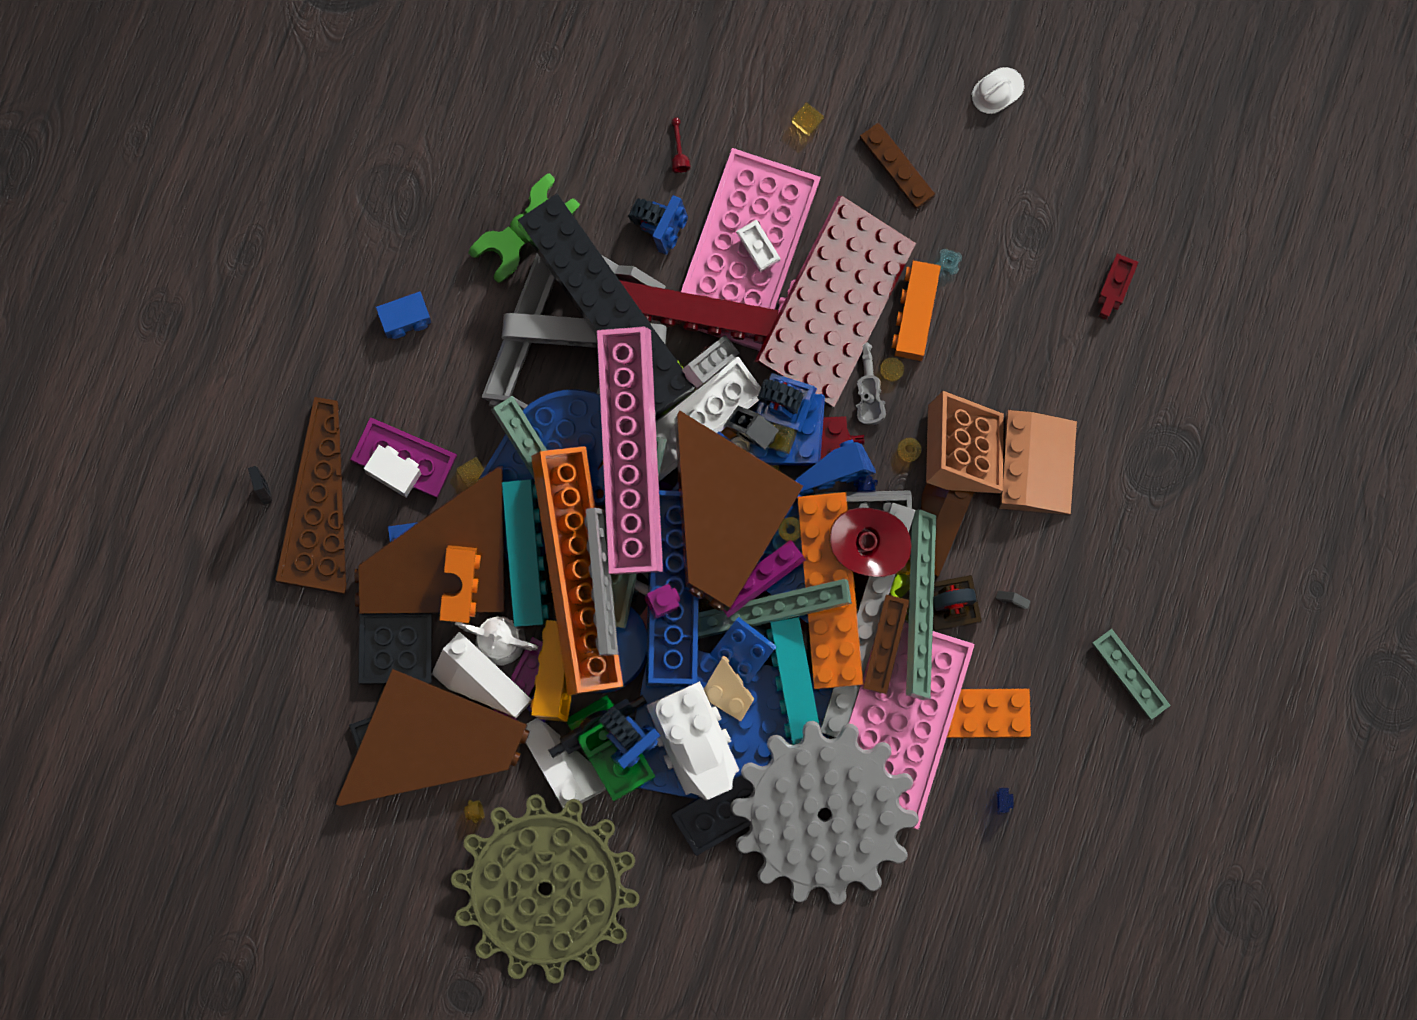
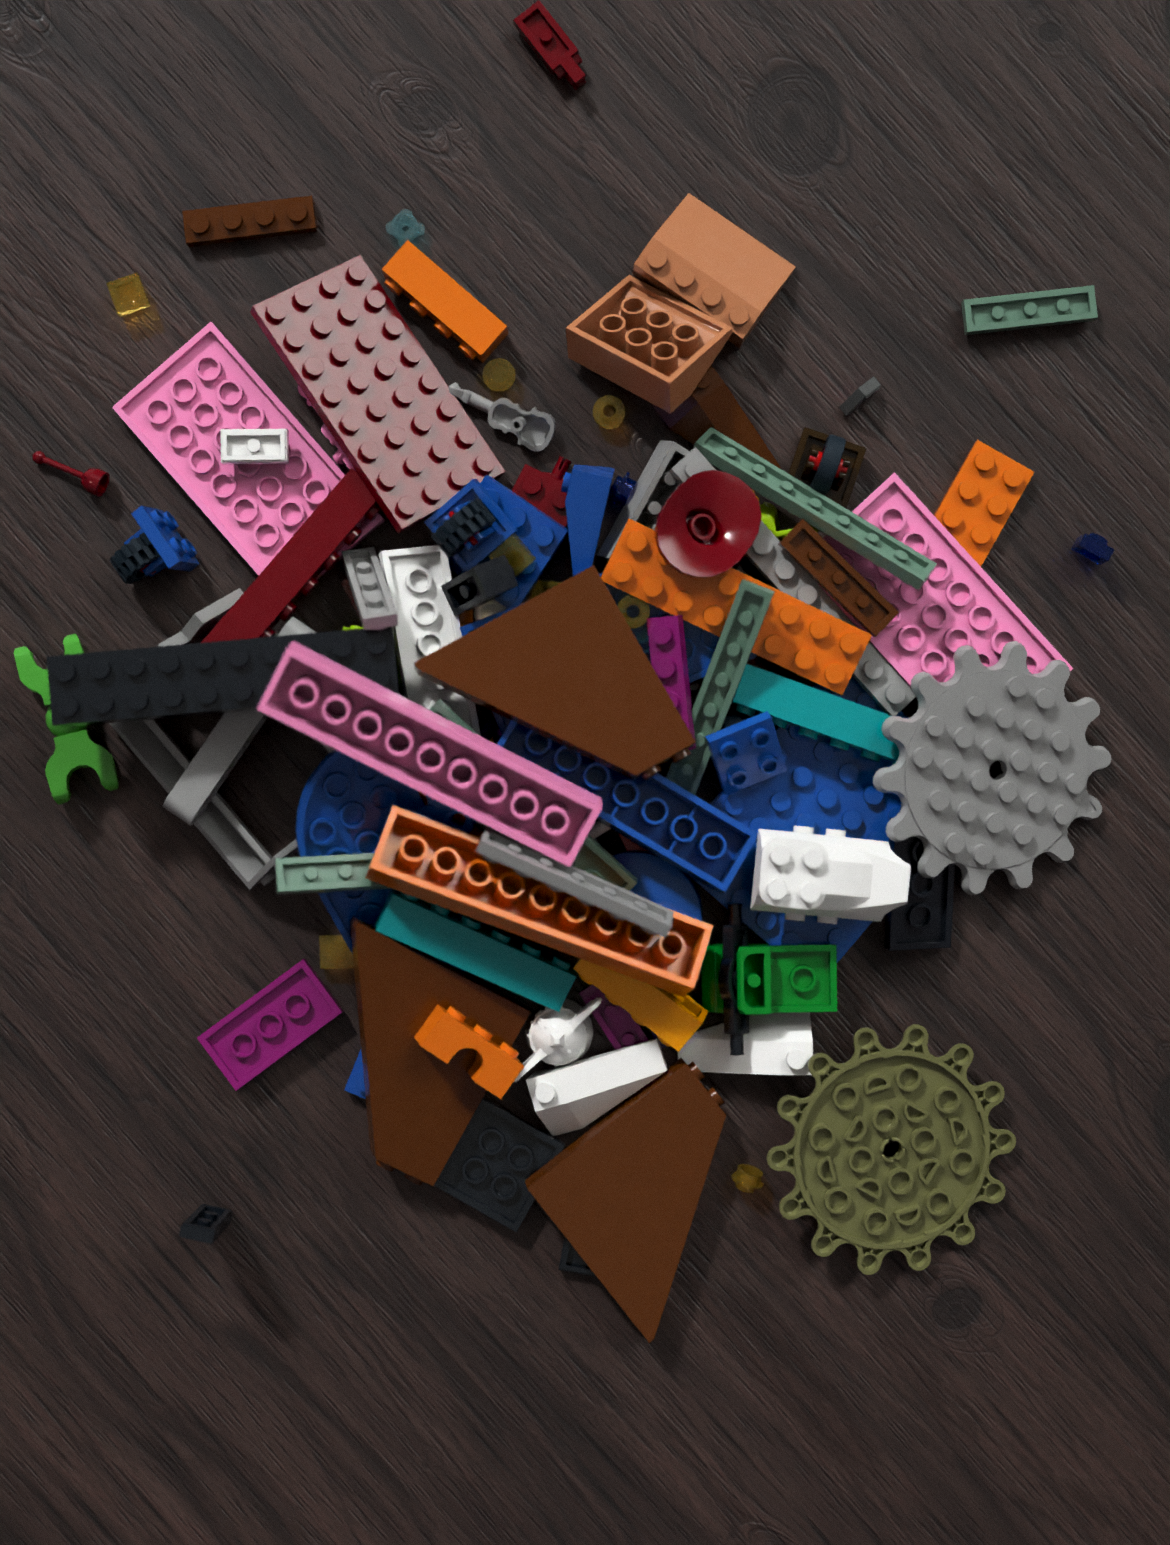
camera: 60 degrees left, 10 degrees up
(315, 528) = (297, 1179): reddish brown wing -> none
(392, 470) = (280, 1049): white brick -> none
(404, 315) = (92, 926): blue brick -> none
(627, 737) = (782, 955): plate -> none
(662, 601) = (639, 819): magenta brick -> none
(727, 691) = (783, 799): tan wing -> none
(997, 90) = (225, 44): white piece -> none

